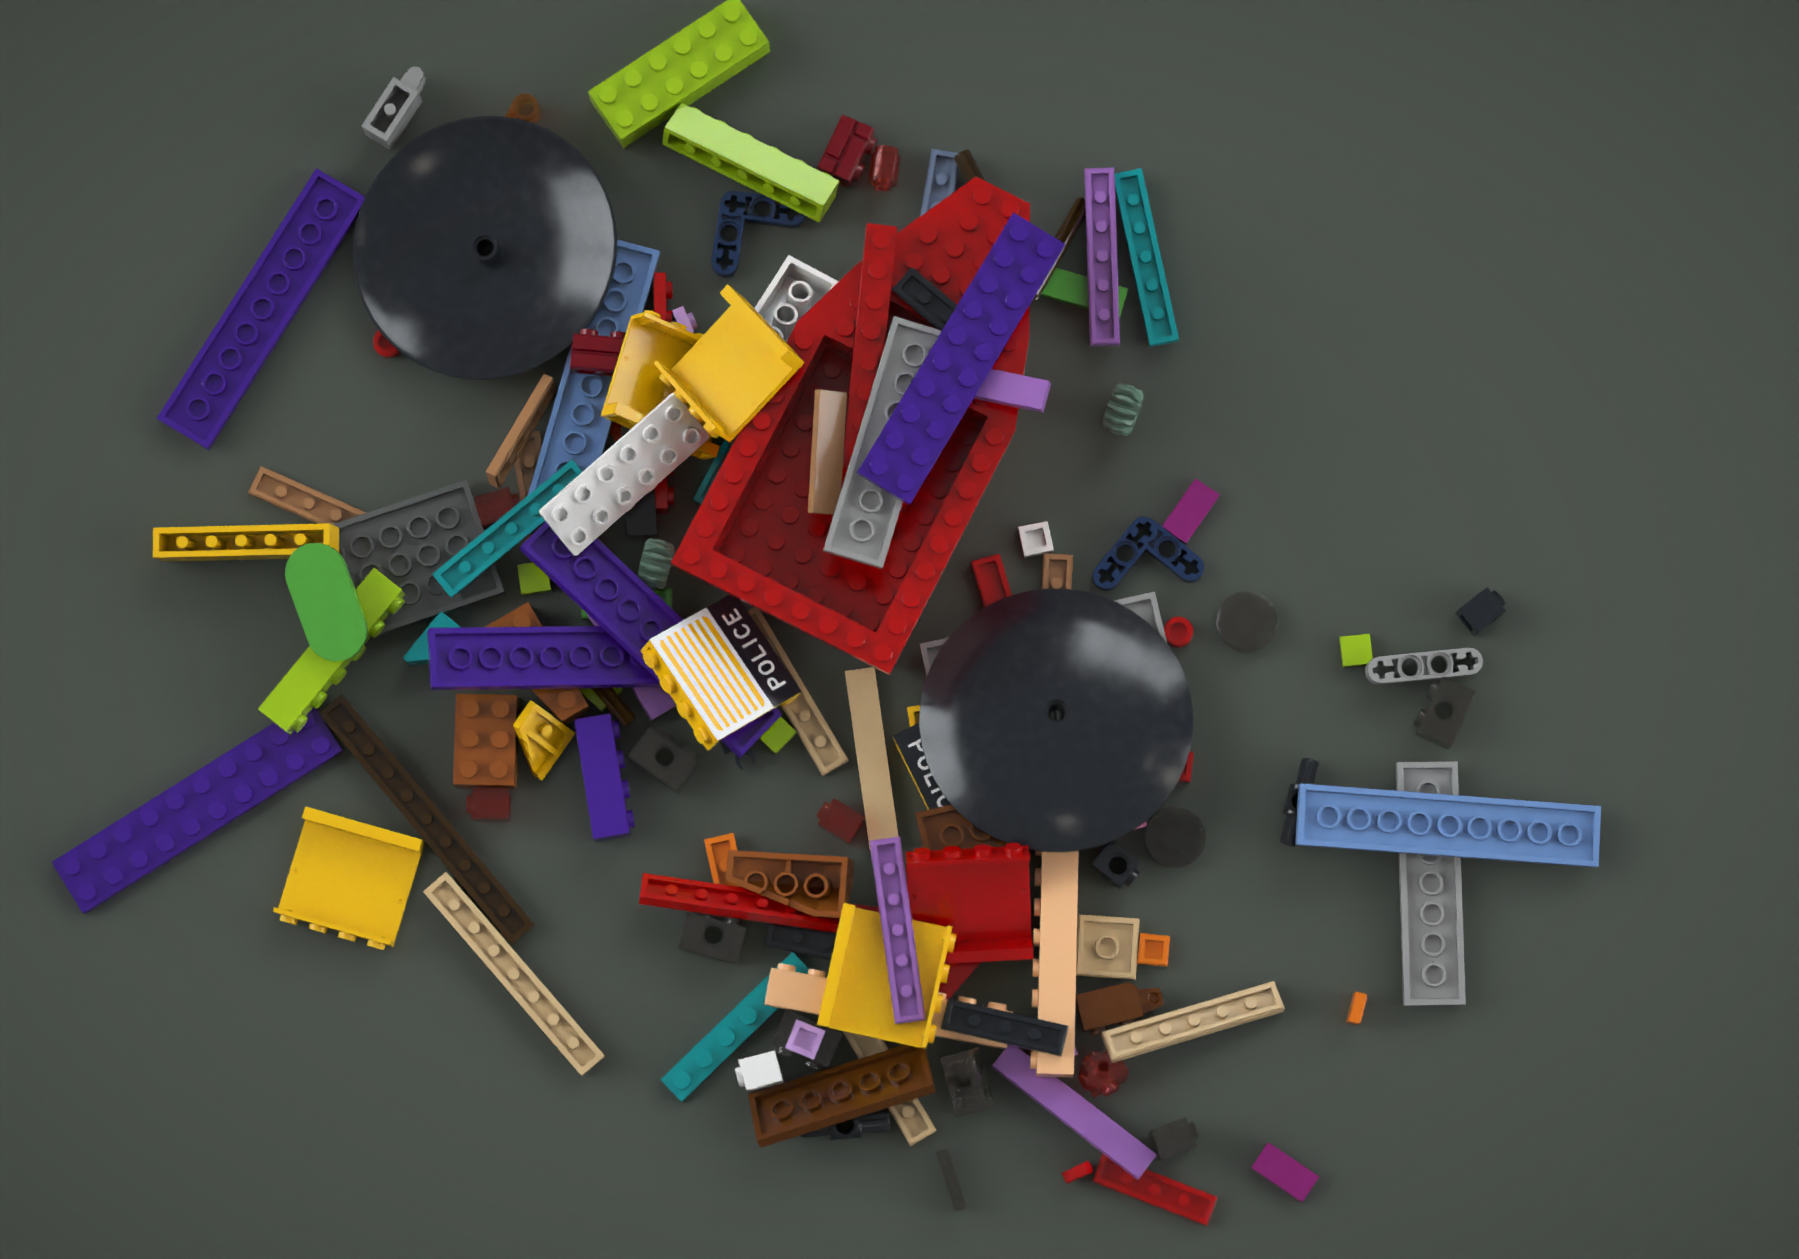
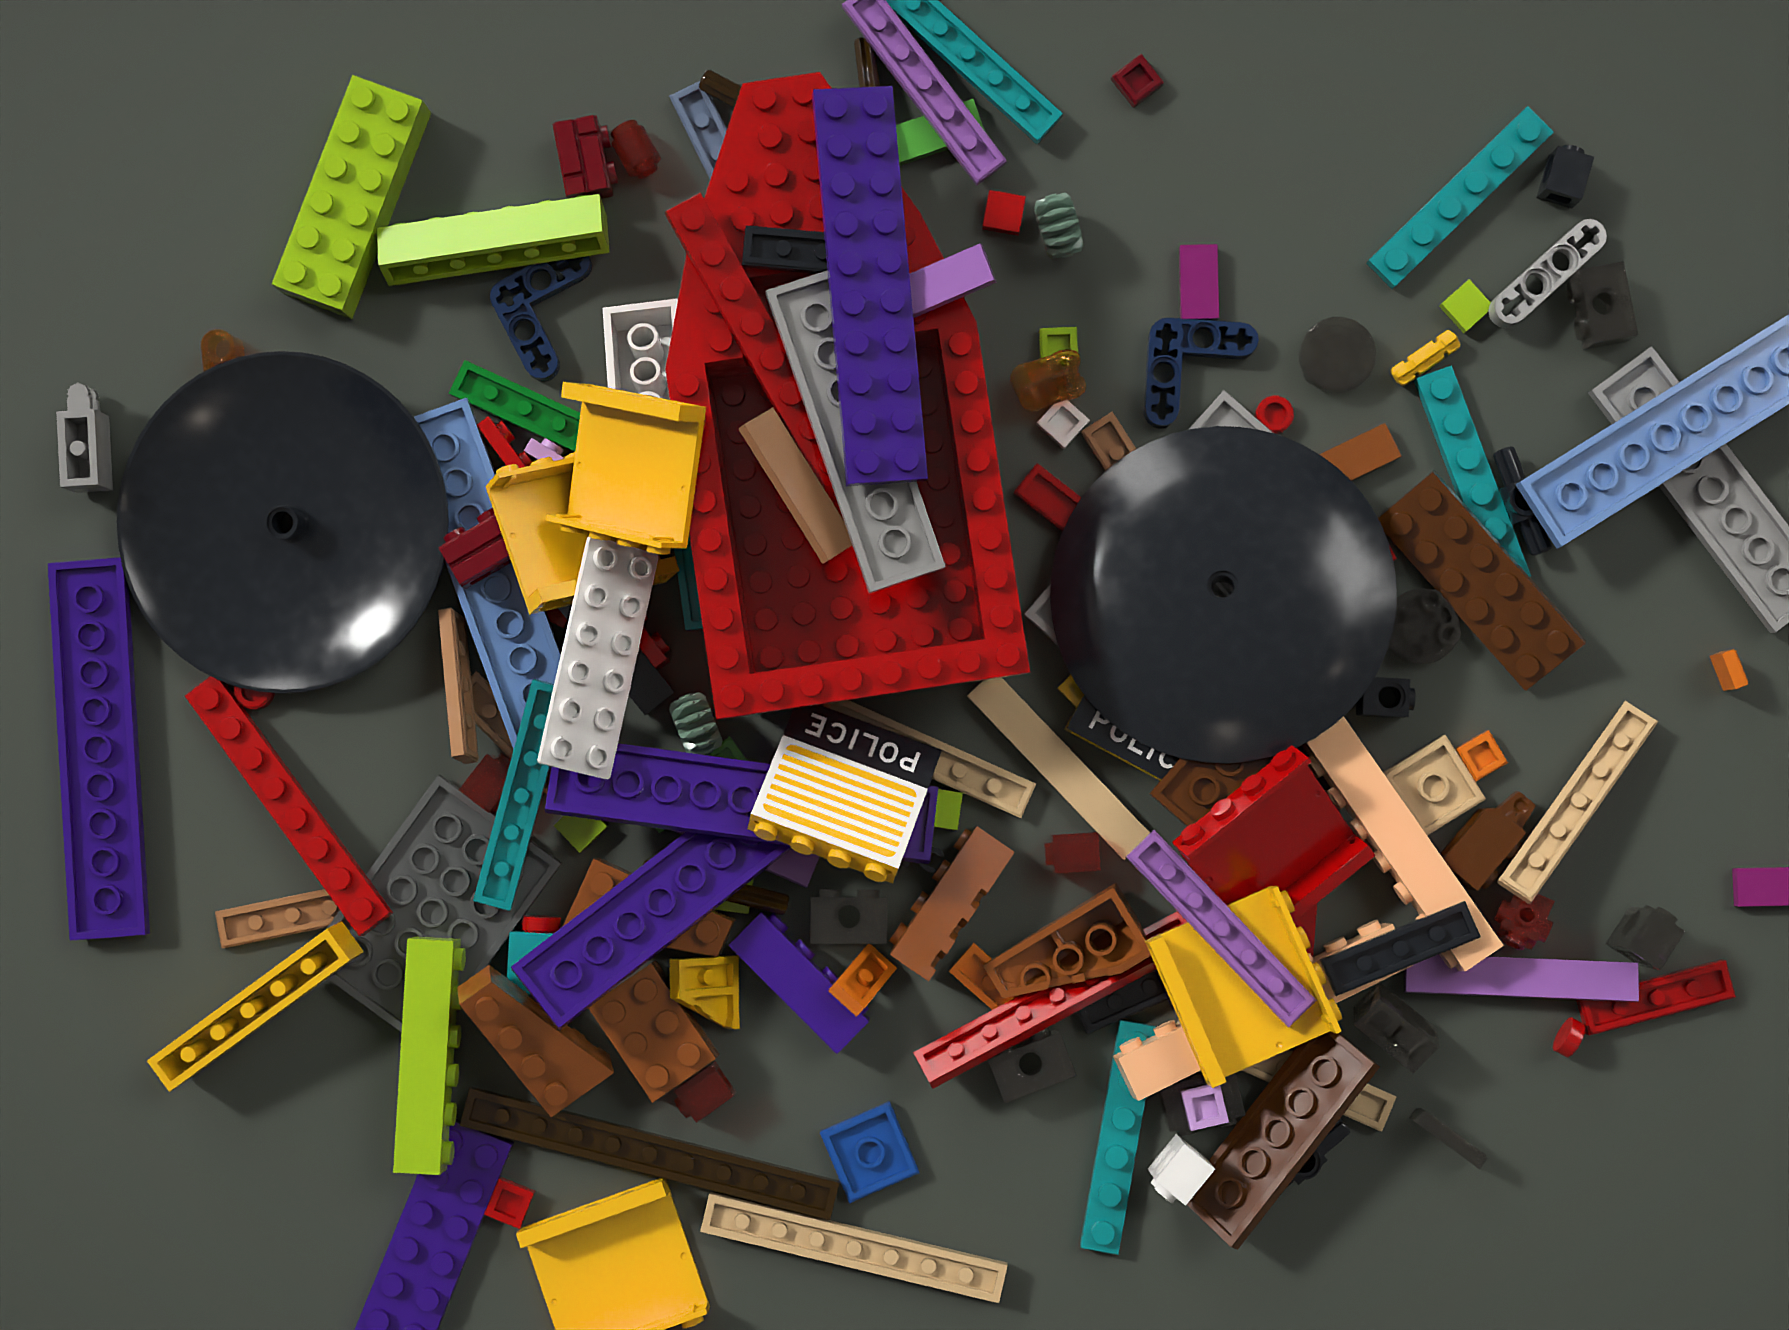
camera: 30 degrees left, 5 degrees up
(313, 787) = (510, 1202): none -> red tile
(326, 601) = (383, 1012): bright green tile -> none
(358, 431) = (289, 805): none -> red plate
(406, 701) = (548, 1061): none -> dark orange wedge
(461, 619) = (541, 924): none -> red tile
(568, 920) = (869, 1151): none -> blue tile
(644, 803) = (862, 979): none -> orange plate
(688, 278) = (517, 405): none -> green plate
(737, 795) = (950, 902): none -> dark orange wedge
(1044, 504) = (1046, 381): none -> clear orange piece
(1068, 488) = (1057, 339): none -> lime tile
(1095, 376) = (1003, 212): none -> red tile
(1216, 698) = (1364, 452): none -> dark orange tile
(1233, 833) = (1480, 581): none -> reddish brown plate
(1245, 352) = (1137, 80): none -> dark red tile
(1278, 765) = (1465, 457): none -> teal plate
(1304, 665) = (1425, 358): none -> yellow axle
(1403, 577) = (1459, 197): none -> teal plate

